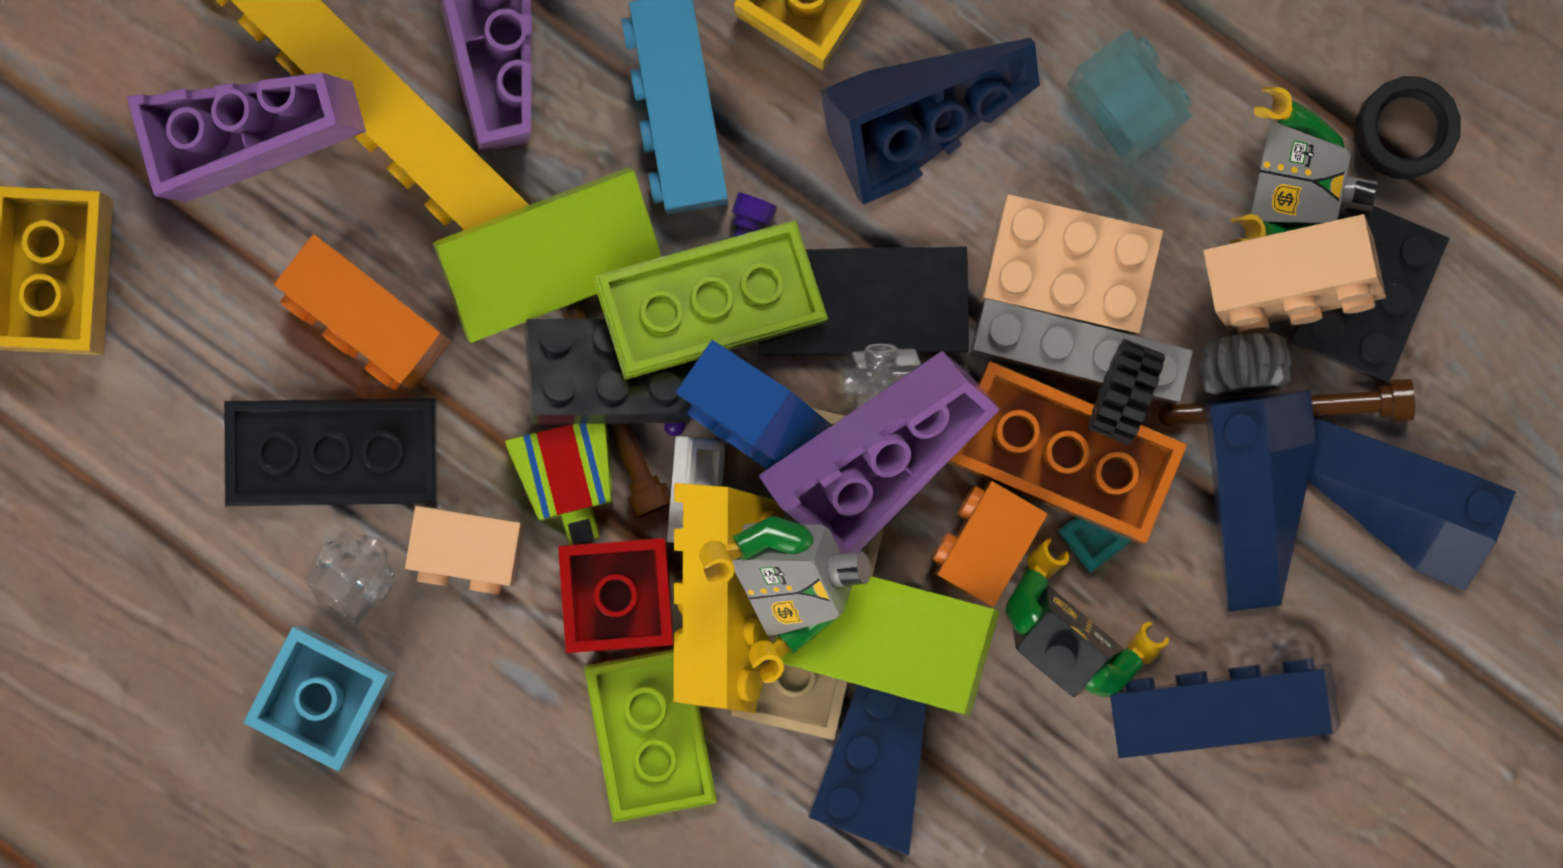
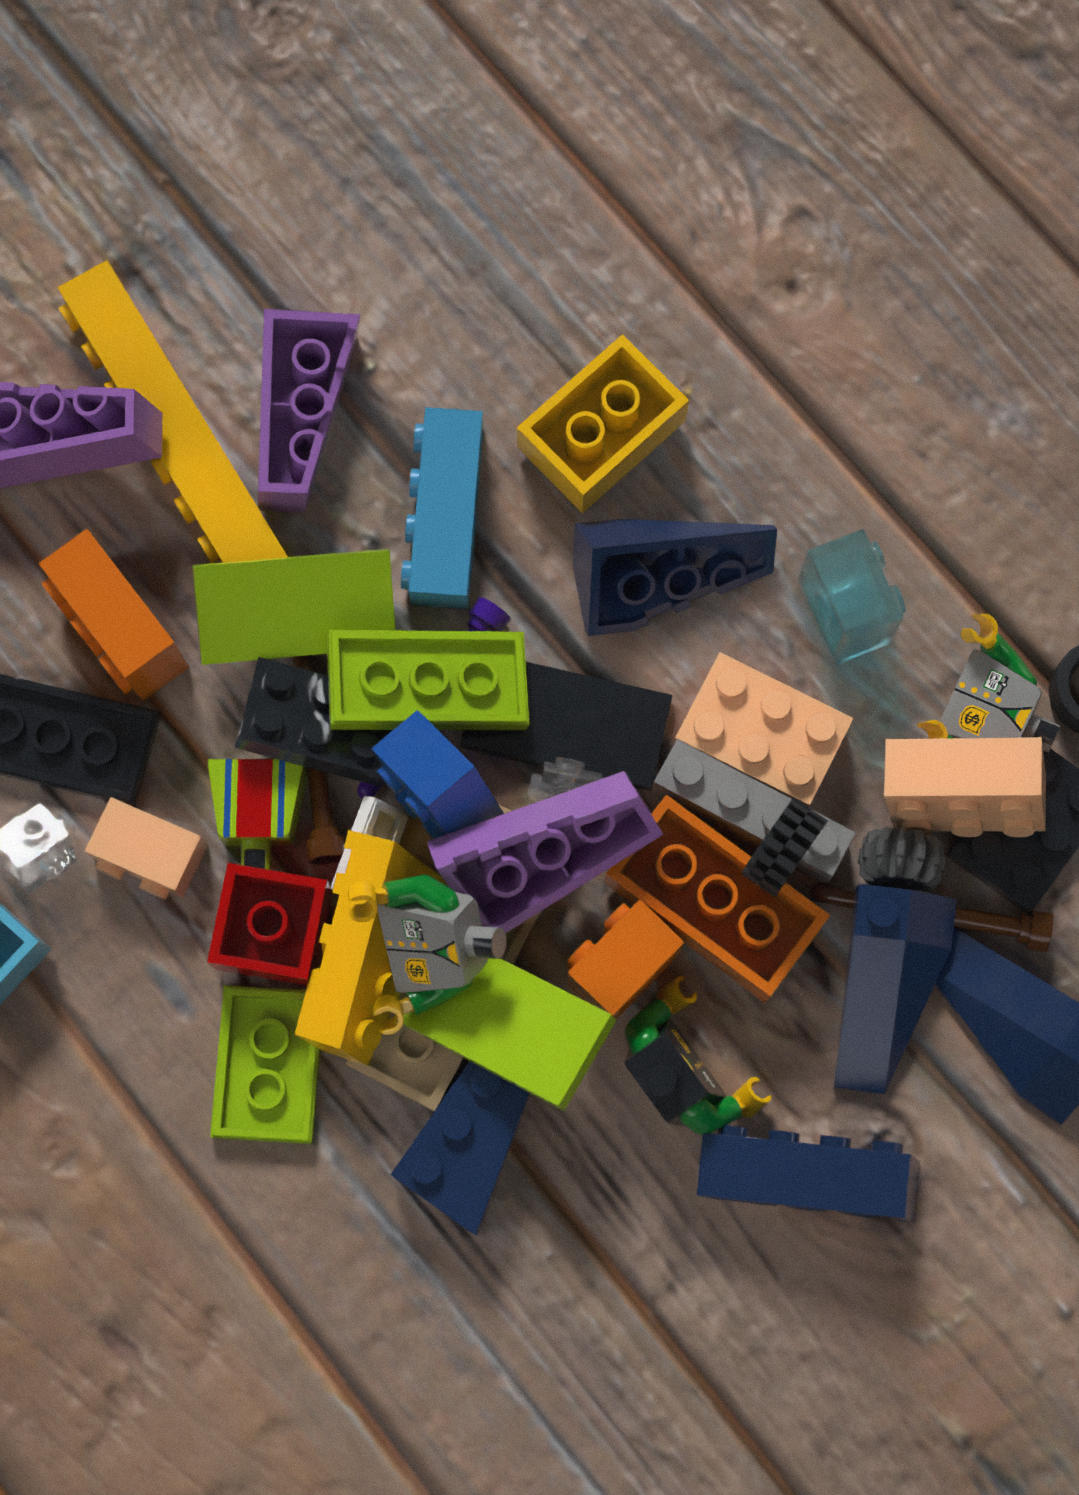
camera: 15 degrees right, 10 degrees down
(1091, 543) = (720, 991): teal tile -> none

